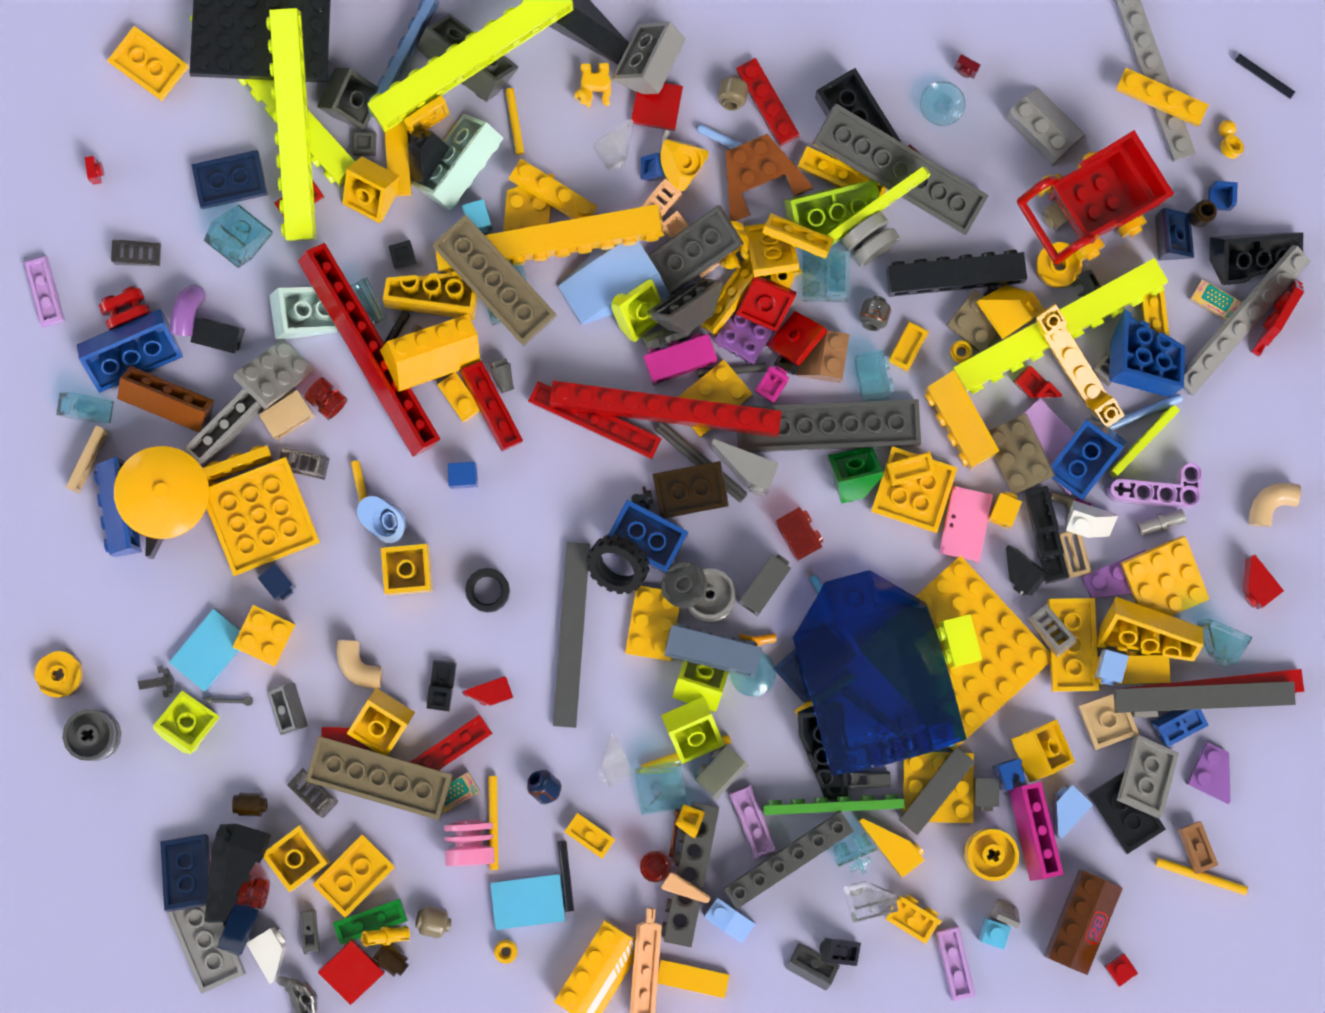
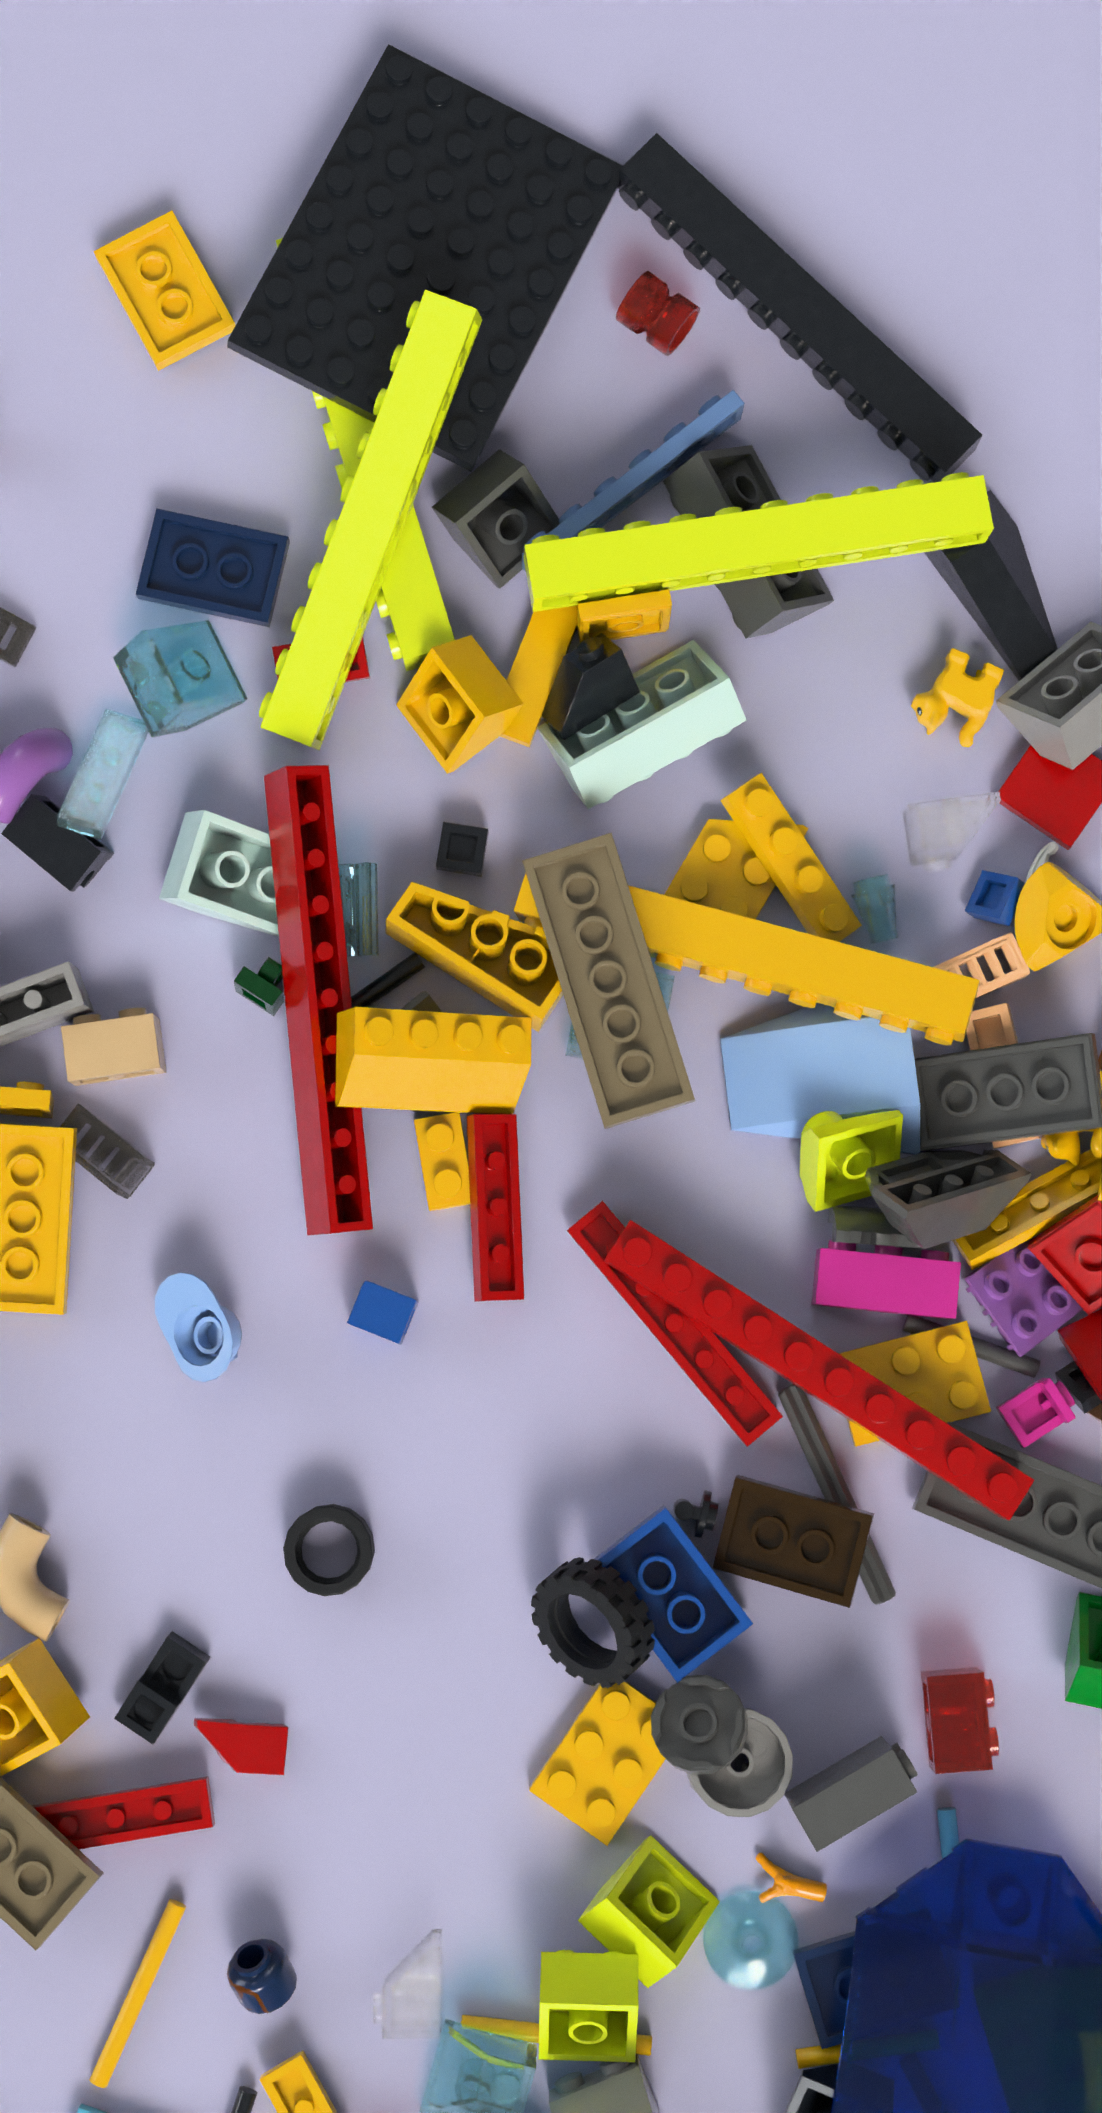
camera: 25 degrees right, 0 degrees up
(223, 294) = (102, 774): none -> clear light blue tile
(273, 373) = (124, 963): light grey plate -> none
(331, 404) = (206, 1066): clear red wheel -> none
(340, 357) = (262, 987): none -> dark green tile
(359, 481) = (189, 1232): yellow bar -> none
(364, 143) = (487, 613): dark grey tile -> none
(407, 569) = (197, 1444): yellow brick -> none
(460, 791) = (108, 1904): tile -> none
(469, 843) = (71, 2022): bright pink wheel -> none
(478, 214) = (634, 842): medium azure brick -> none
(502, 374) = (542, 1158): dark grey cone -> none
(514, 120) = (780, 698): yellow bar -> none
(571, 635) = (445, 1708): dark grey tile -> none
(600, 195) = (877, 907): none -> clear light blue cone
(713, 651) = (696, 1873): sand blue brick -> none
(749, 468) = (926, 1563): light grey slope -> none

